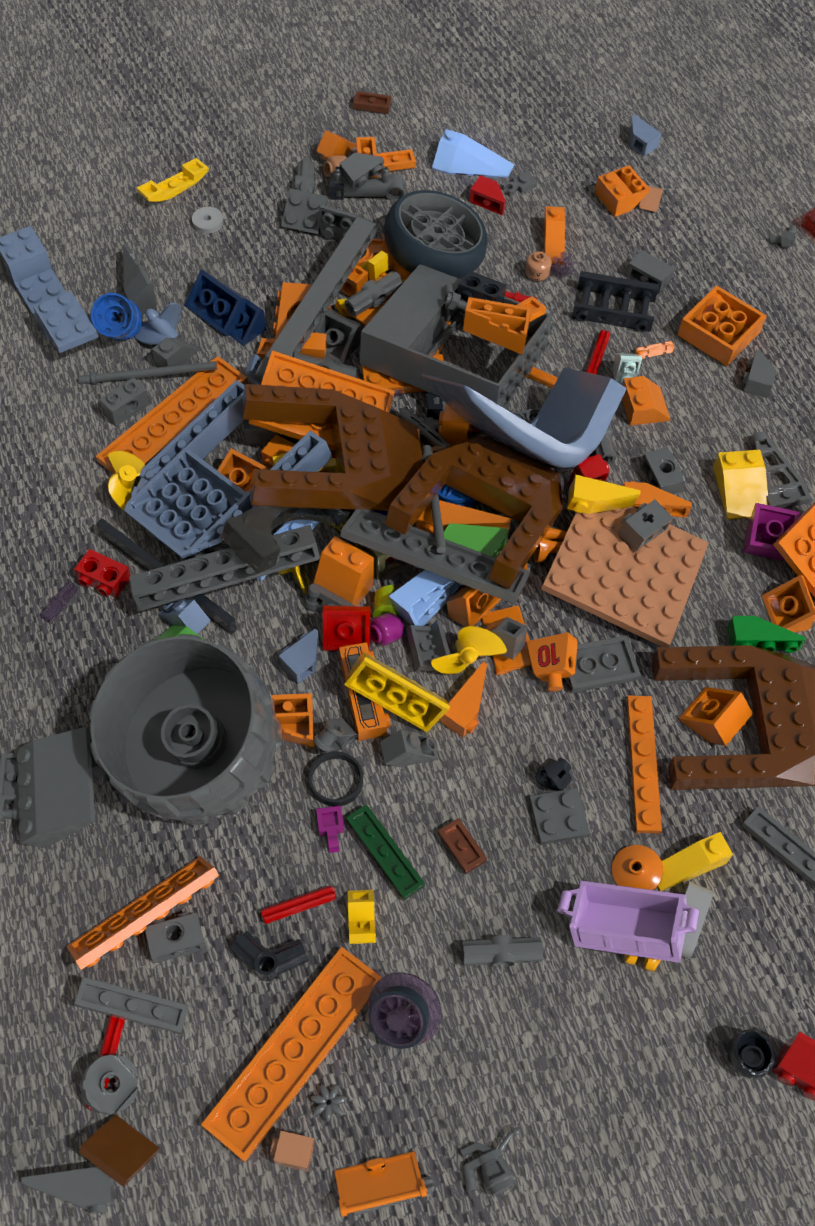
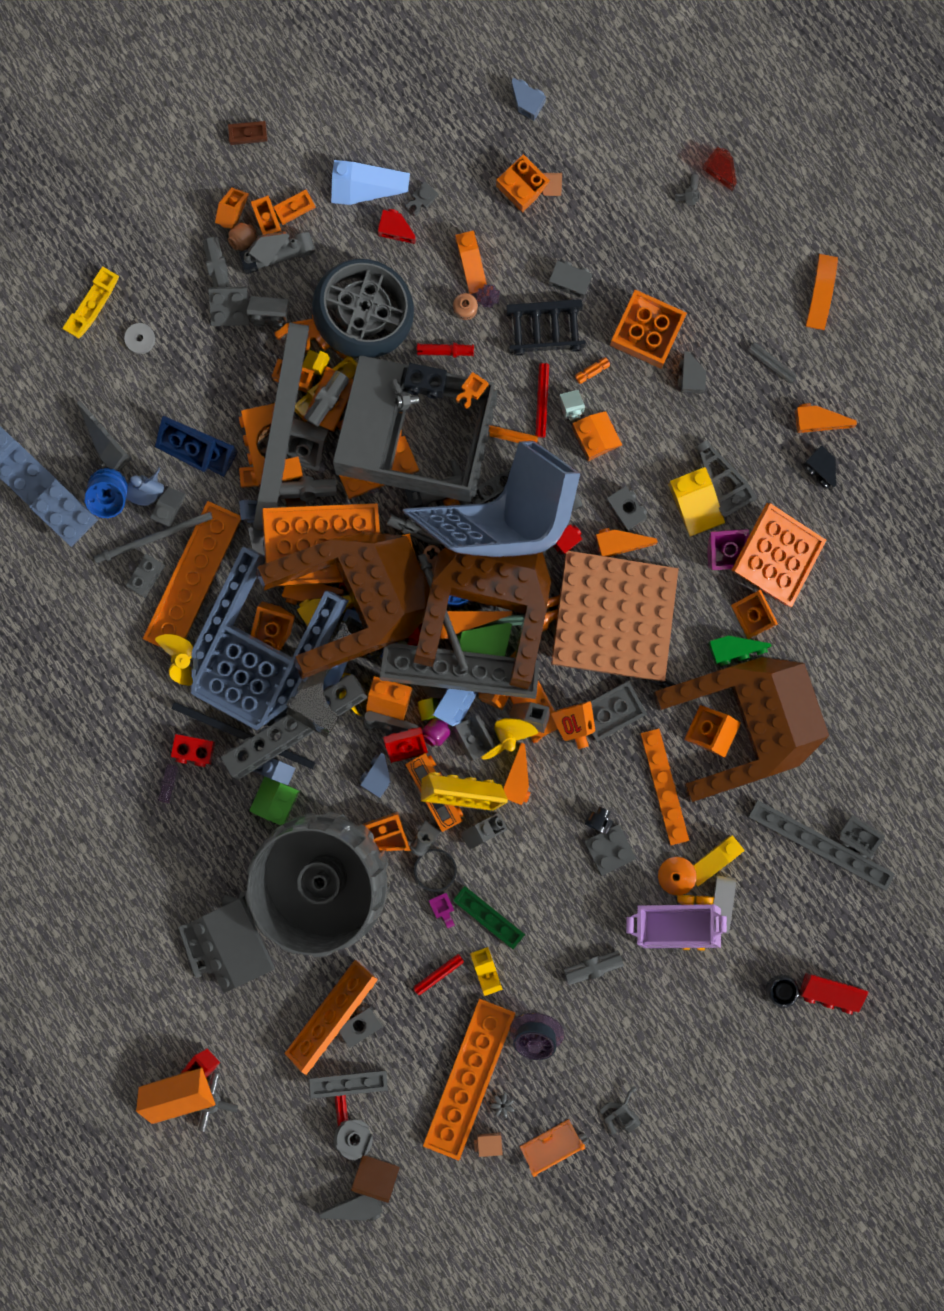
camera: 10 degrees left, 25 degrees up
(255, 954) = (419, 1021): black piece -> none
(462, 846) = (544, 896): copper plate -> none
(498, 323) = (452, 420): orange wedge -> none
(597, 496) = (574, 567): yellow slope -> none
(645, 524) = (631, 574): dark grey brick -> none

